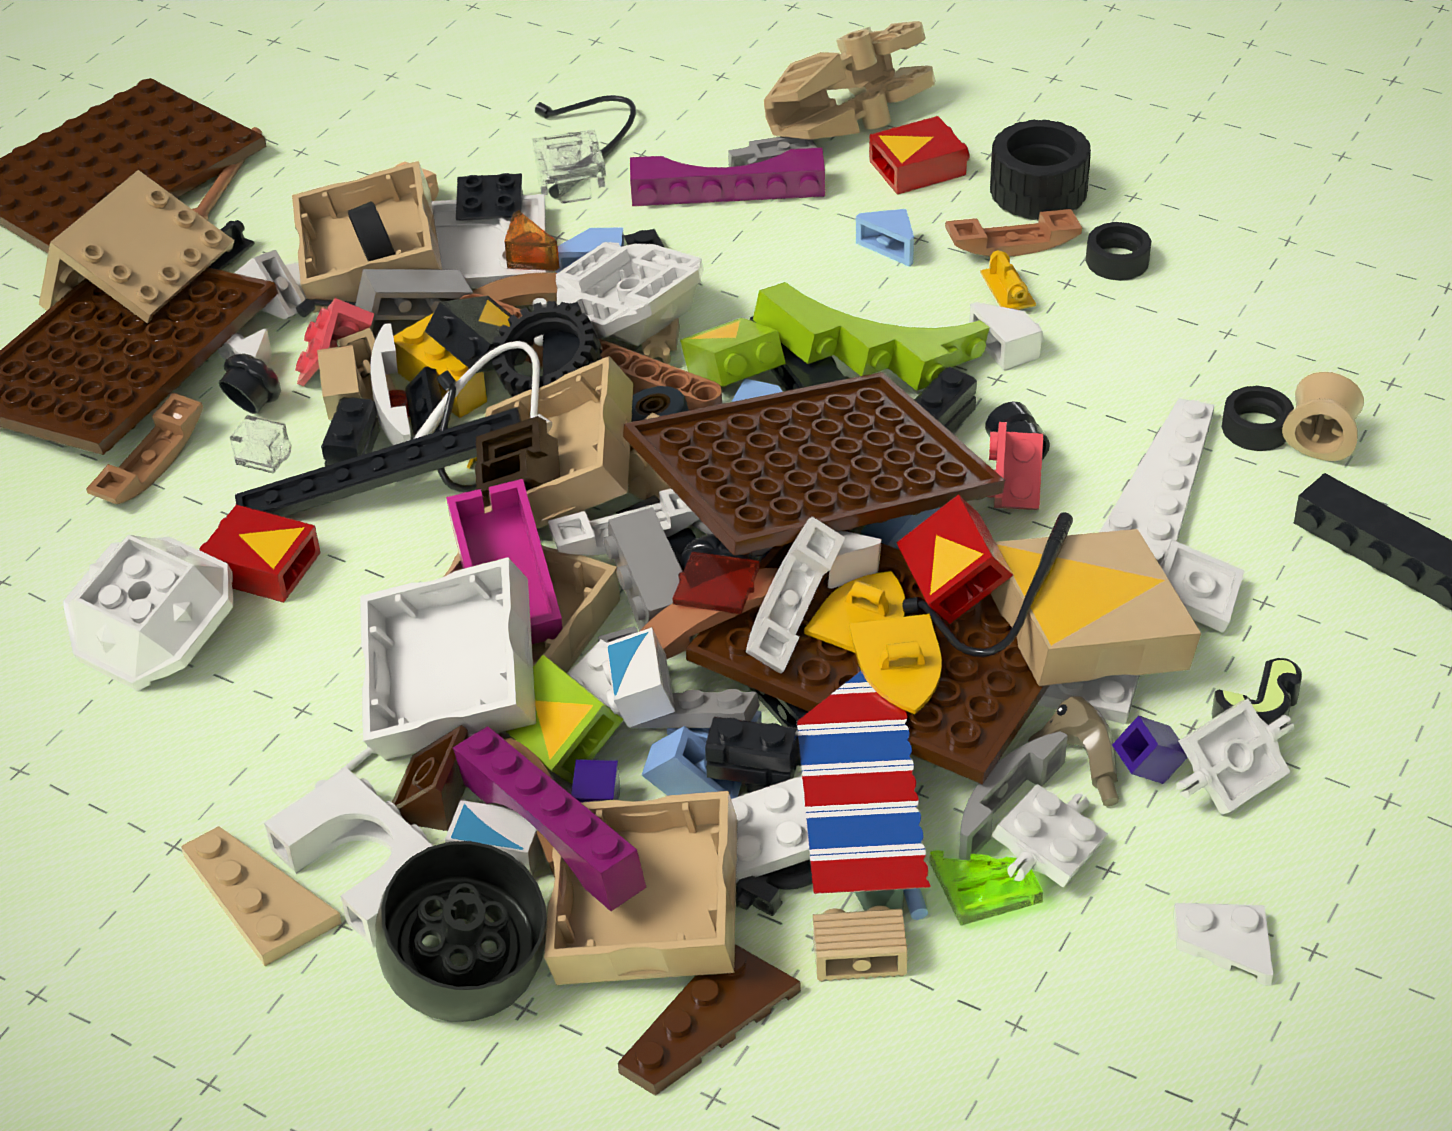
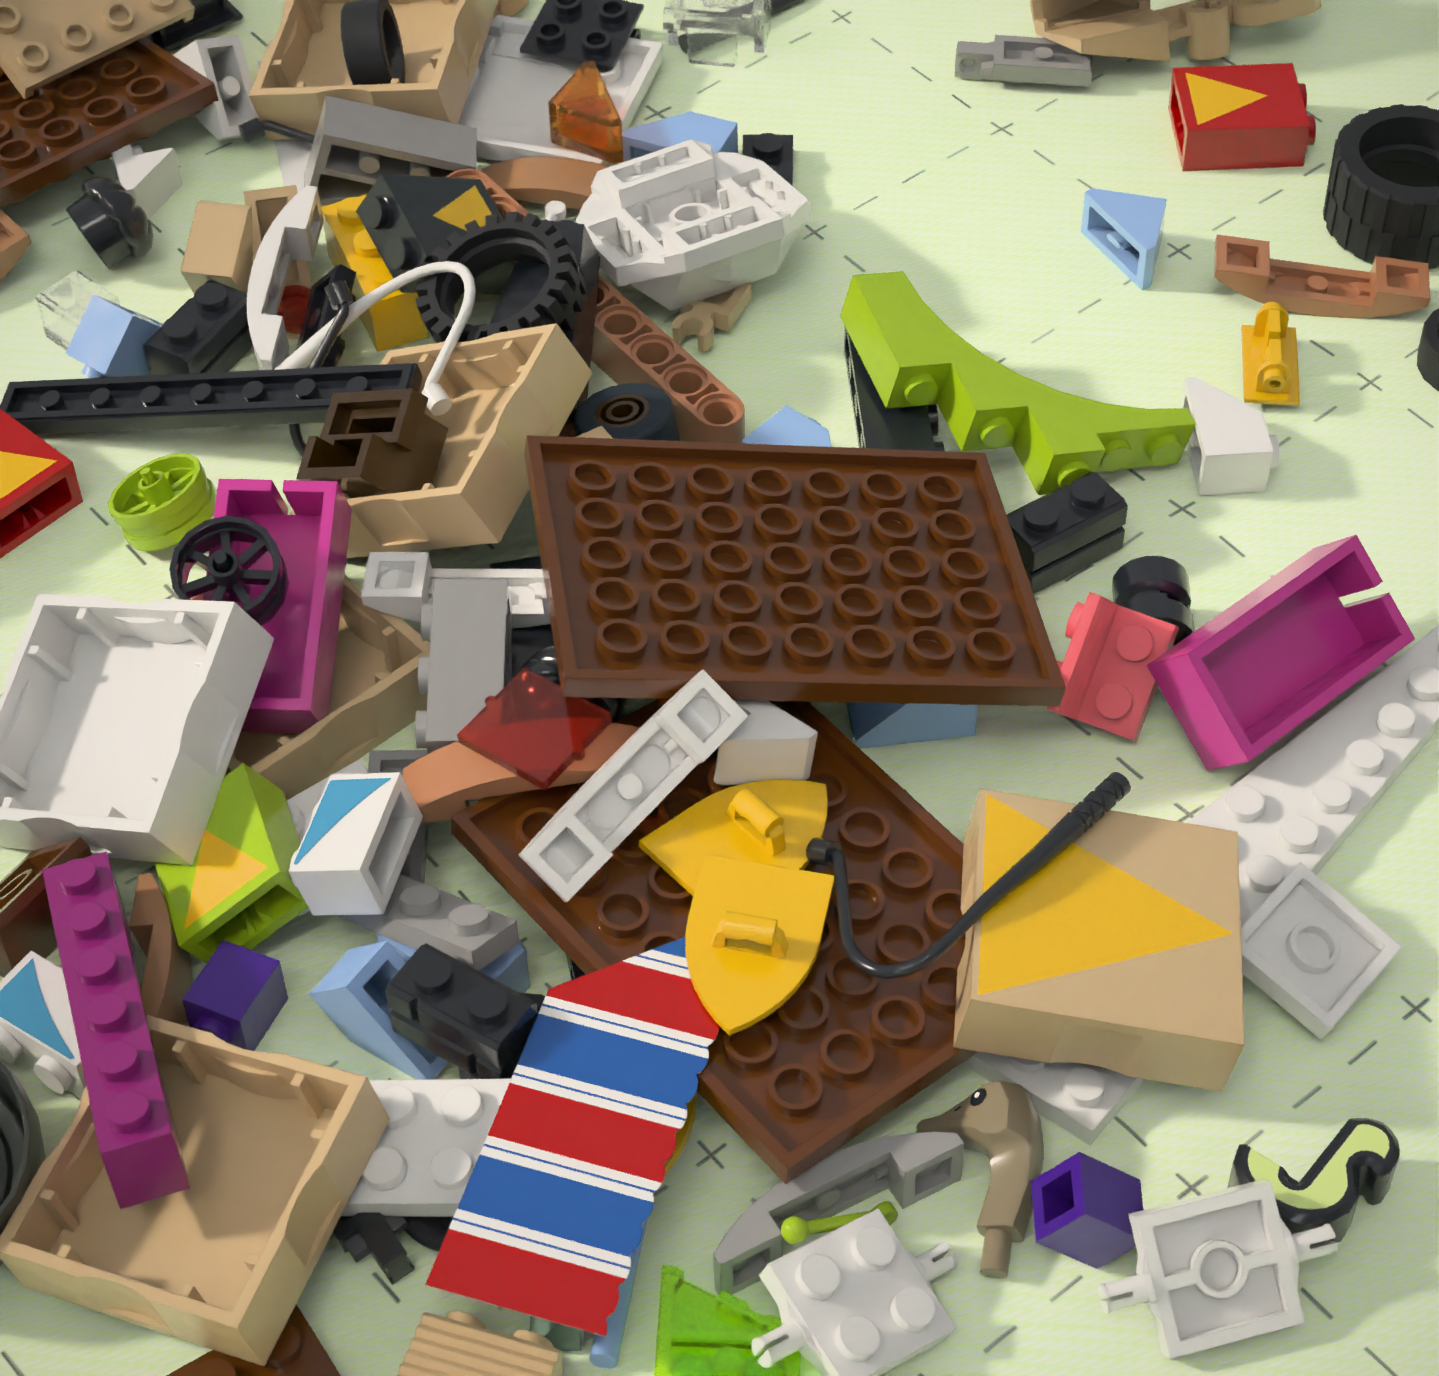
camera: 20 degrees right, 5 degrees up
(296, 450) = (112, 340): none -> light blue slope
(331, 324) = (255, 165): coral bracket -> none
(384, 534) = (162, 501): none -> lime wheel
(481, 548) = (229, 572): none -> black wheel
(668, 182) = (1027, 102): magenta arch -> none
(733, 351) = (792, 358): lime brick -> none
(954, 559) = (911, 798): red brick -> none
(1000, 806) = (795, 1229): none -> lime hinge
(1104, 436) = (1280, 654): none -> dark pink piece

